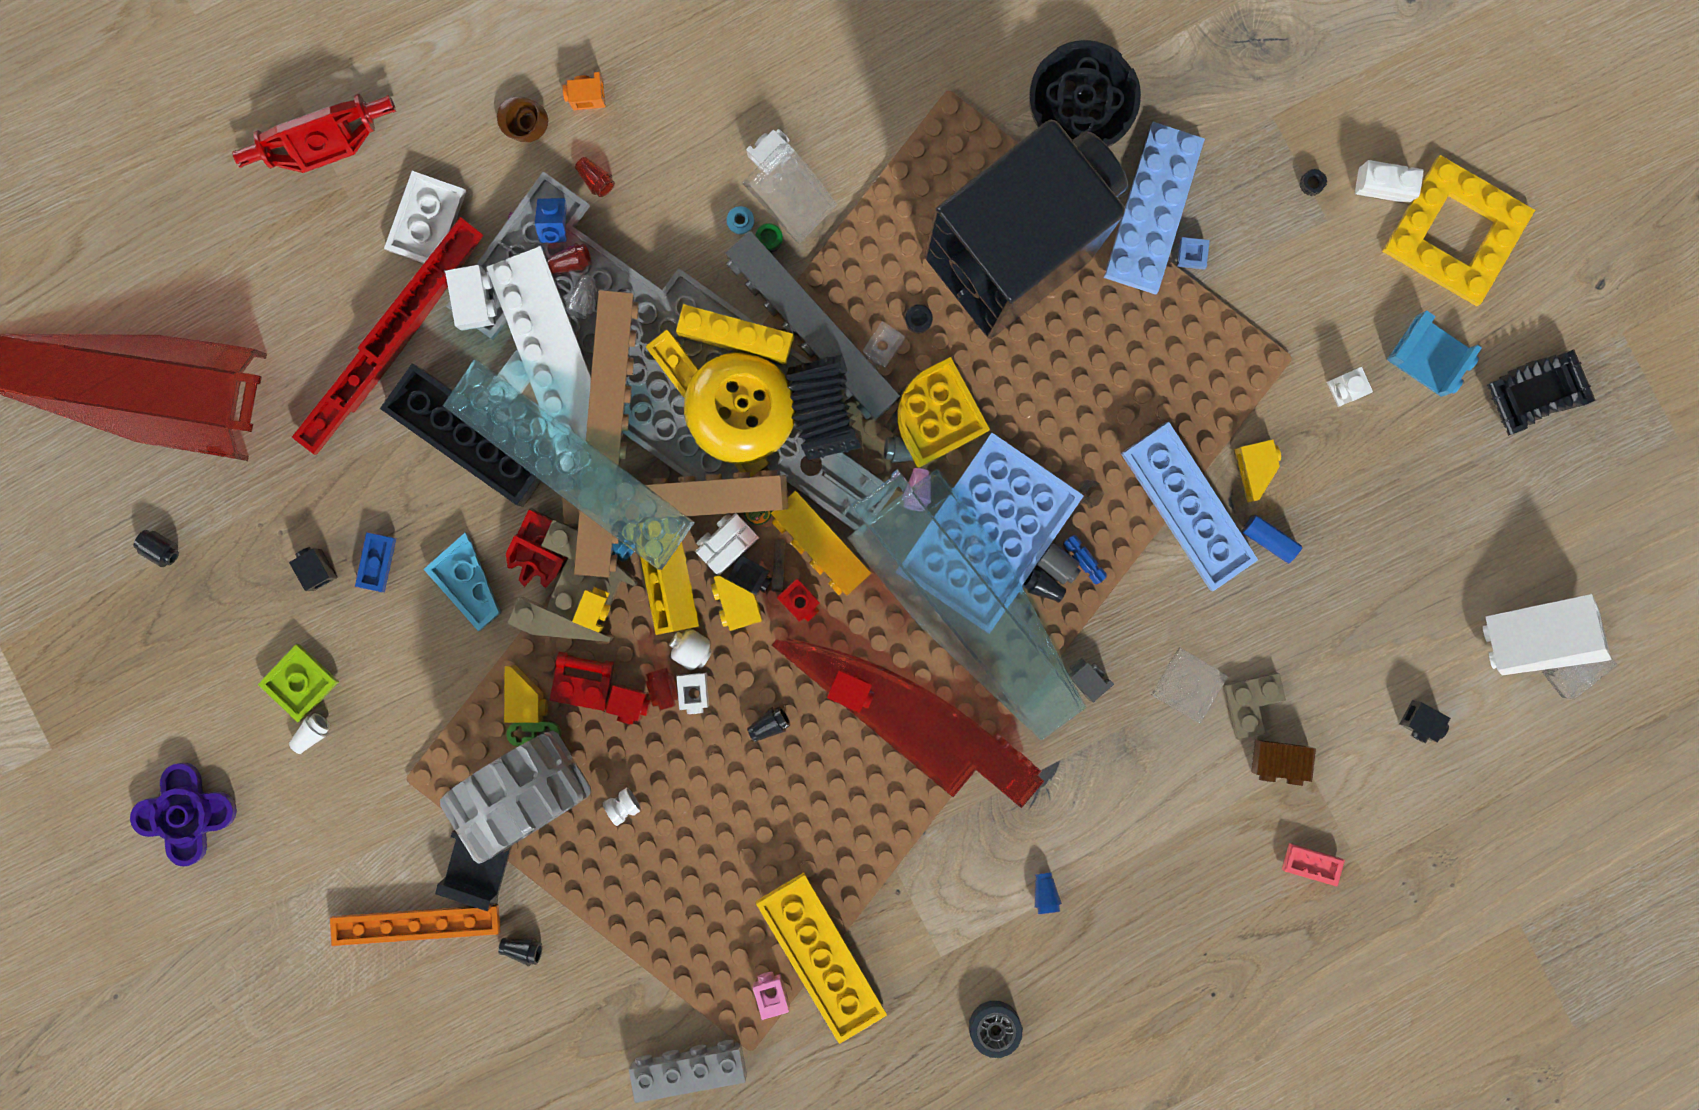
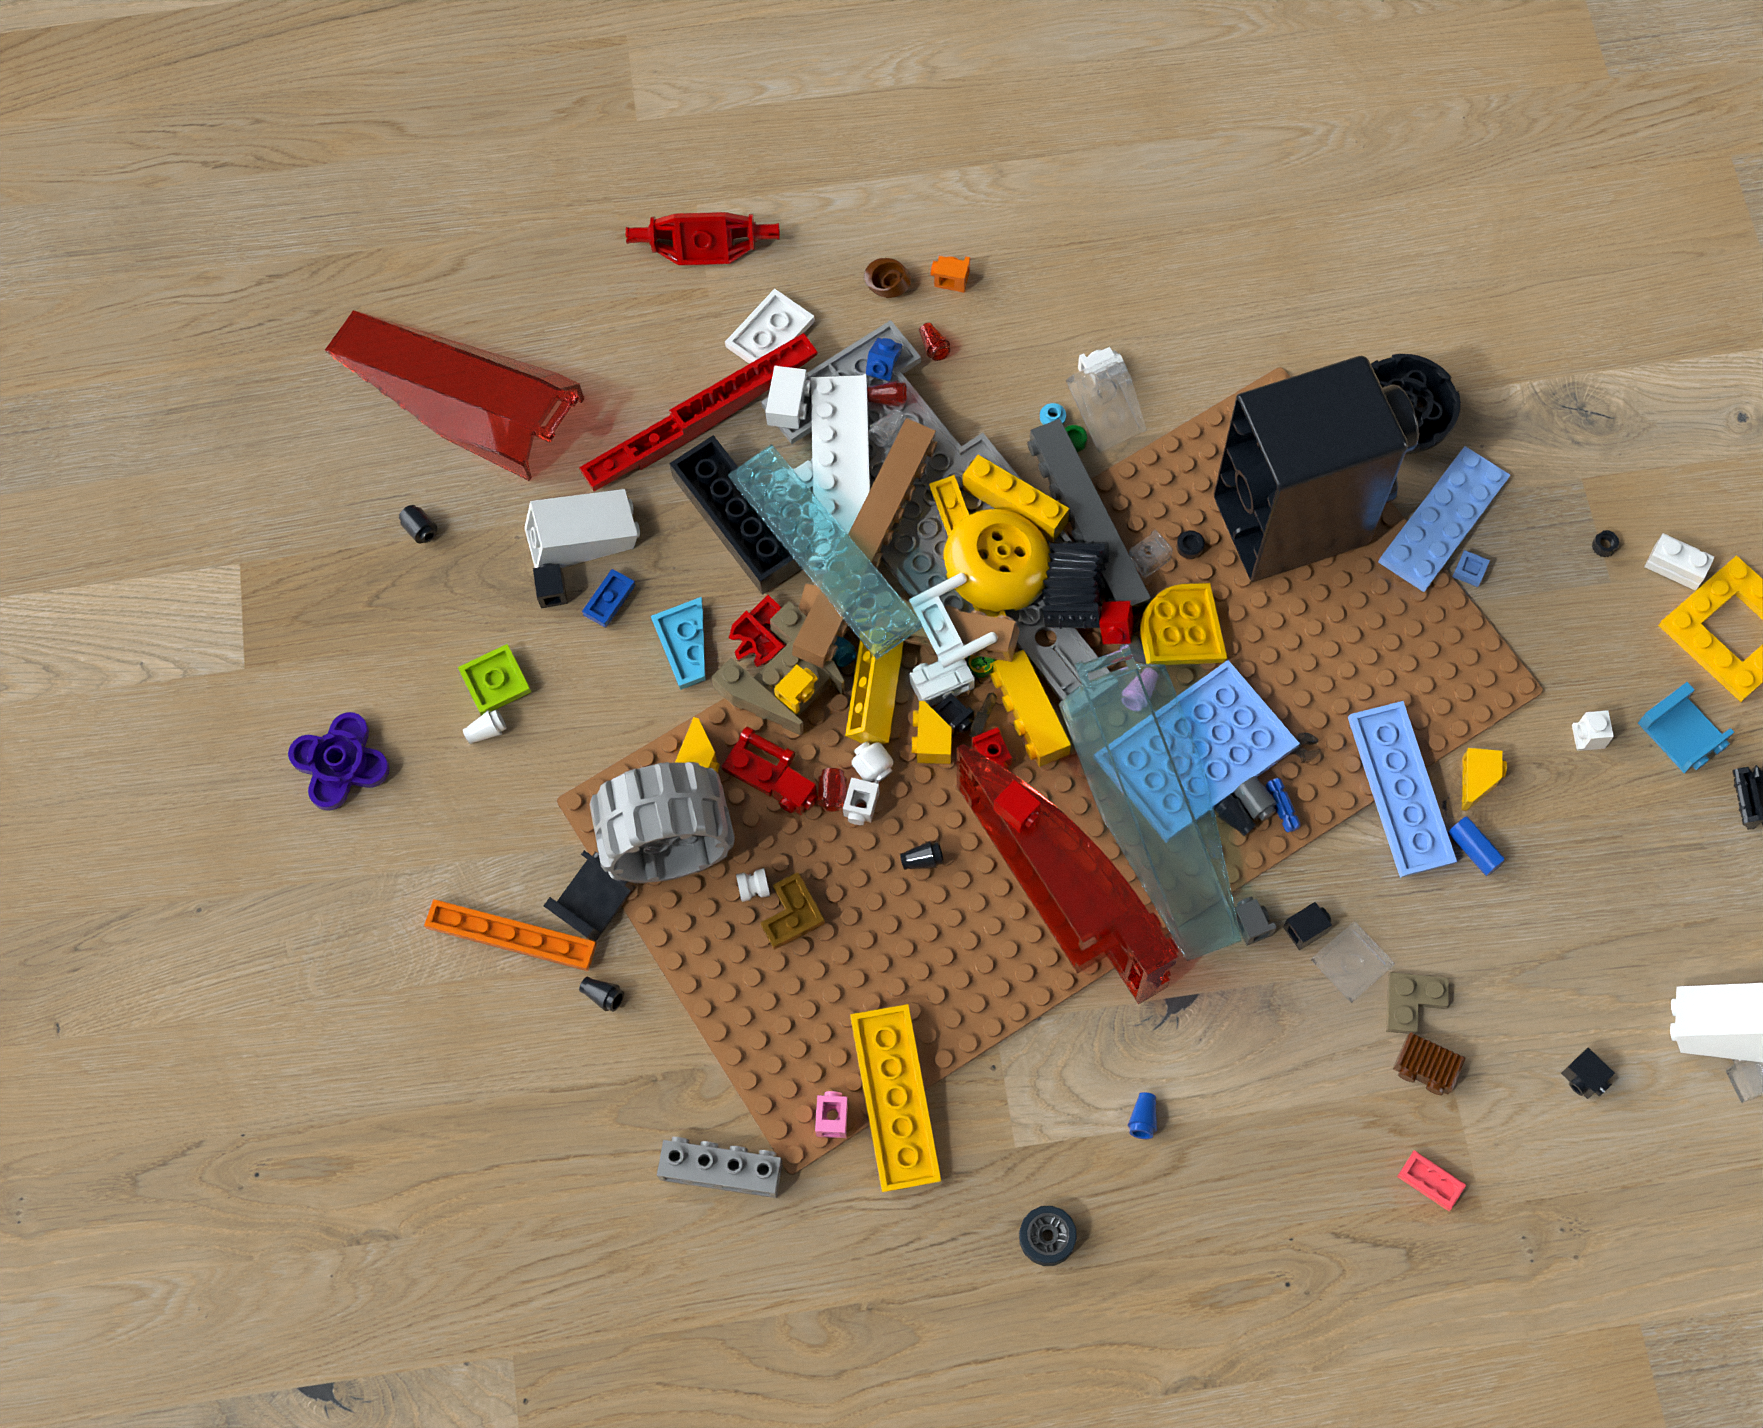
camera: 25 degrees right, 20 degrees down
(320, 500) = (580, 527): none -> white slope
(674, 816) = (799, 916): none -> pearl gold plate
(709, 505) = (940, 627): none -> white plate
(875, 434) = (1116, 622): none -> red brick
(1141, 667) = (1308, 925): none -> black brick

